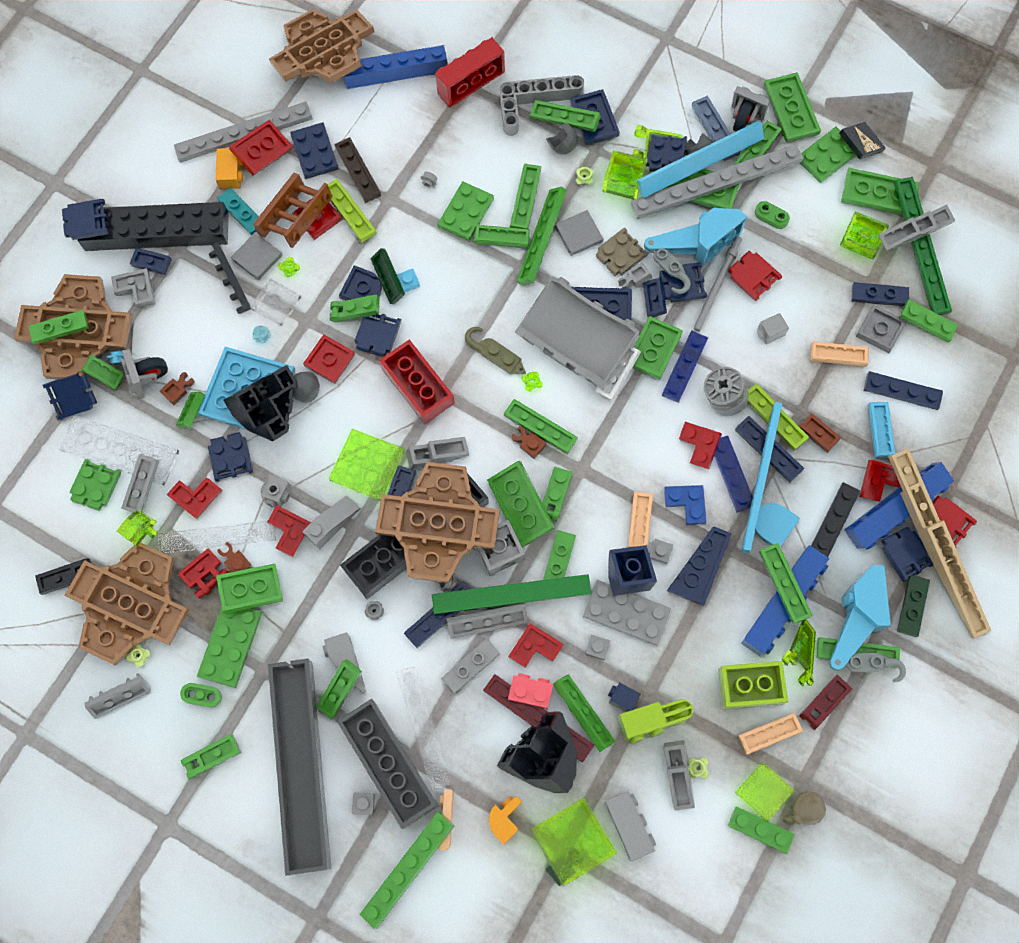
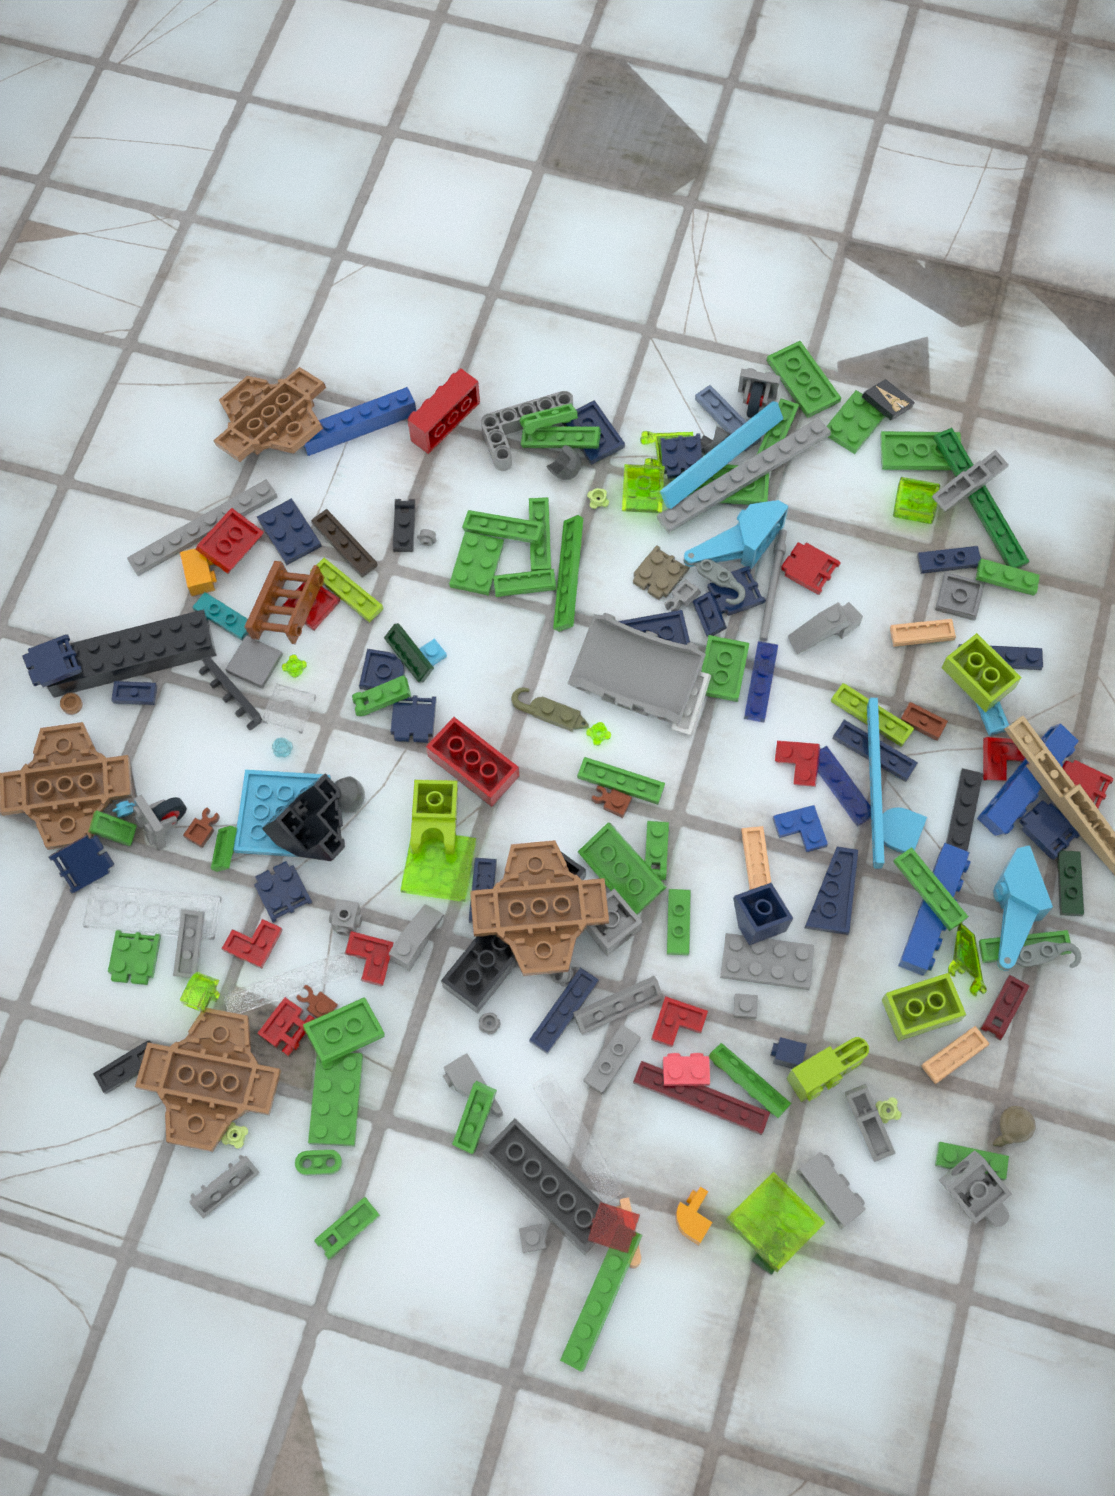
camera: 15 degrees left, 5 degrees down
(58, 327) = (50, 788): bright green plate -> none
(97, 259) = (71, 703): none -> medium nougat tile
(136, 282) = (126, 720): light grey plate -> none
(299, 767) = (452, 1215): dark grey piece -> none
(329, 359) = (366, 758): red plate -> none
(372, 420) = (434, 814): none -> lime brick
(412, 165) = (404, 526): none -> black plate
(431, 814) = (614, 1227): none -> clear red piece
(437, 451) = (513, 832): light grey slope -> none
(495, 183) = (503, 526): none -> bright green plate
(511, 594) = (636, 970): green tile -> none
(543, 755) = (719, 1136): black brick -> none
(557, 96) = (548, 417): none -> bright green plate
(579, 232) = (608, 561): flat silver tile -> none
(661, 551) = (787, 886): light grey plate -> none
(726, 391) = (817, 707): light grey wheel -> none
(748, 330) = (820, 628): none -> light grey slope
(758, 860) = (978, 1192): none -> light grey brick
(764, 791) = (965, 1118): clear neon green tile -> none
(771, 215) = (812, 499): bright green plate -> none
(881, 401) = (981, 672): none -> lime brick

